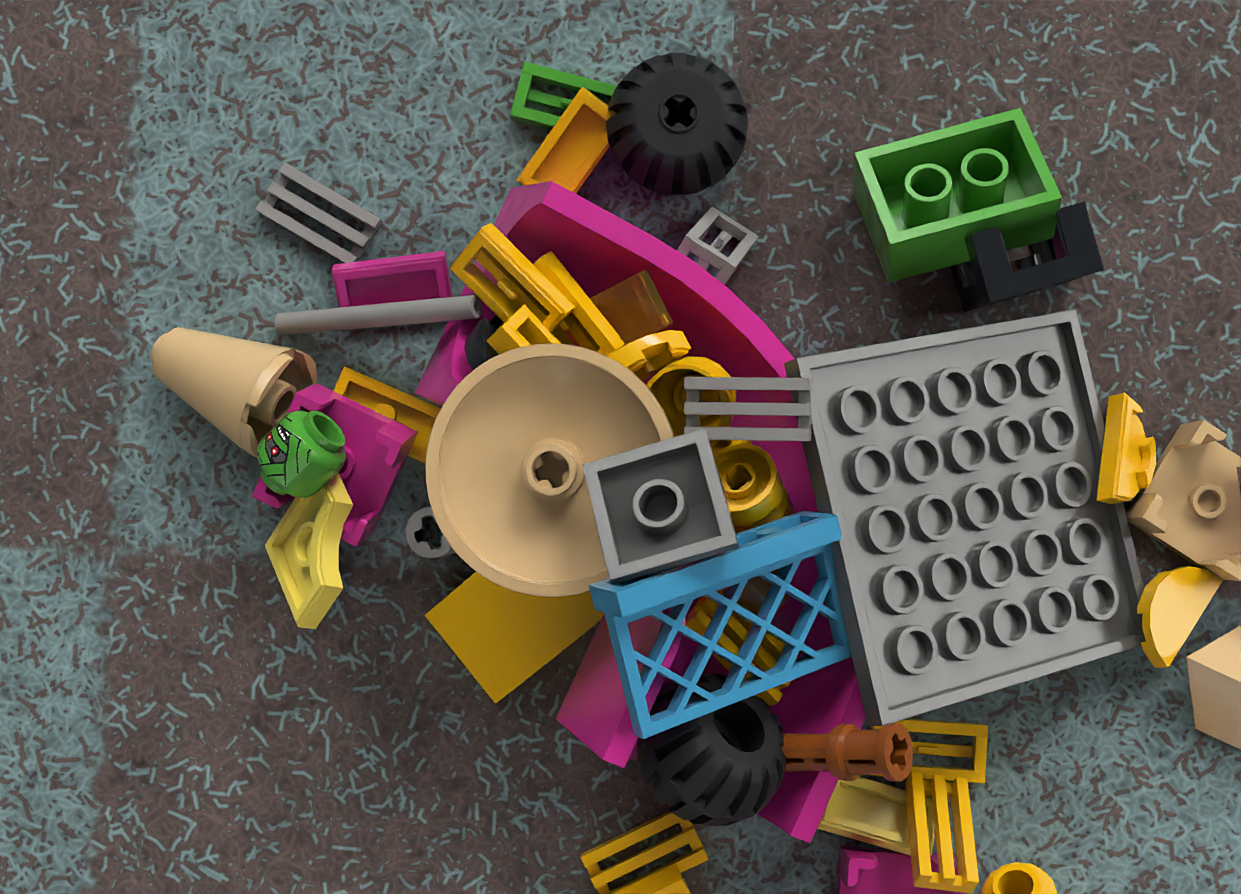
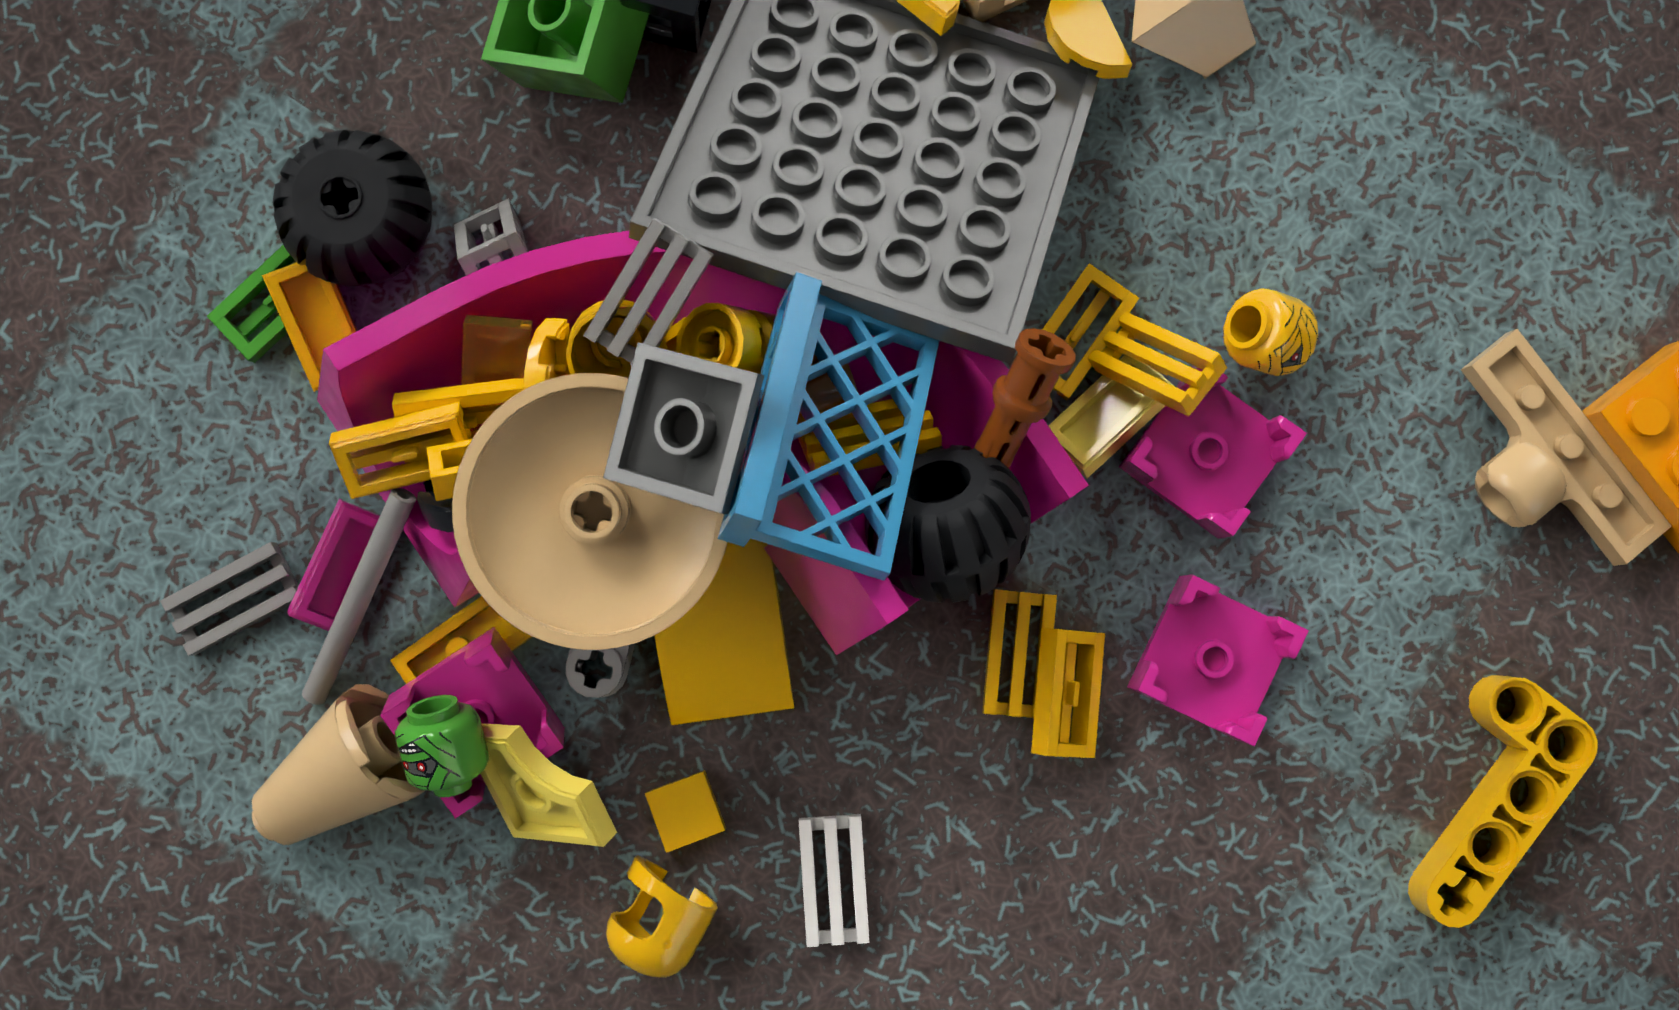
camera: 55 degrees left, 0 degrees up
(268, 723) = (677, 933): none -> yellow helmet
(340, 845) = (837, 934): none -> white tile
(364, 667) = (685, 811): none -> yellow tile

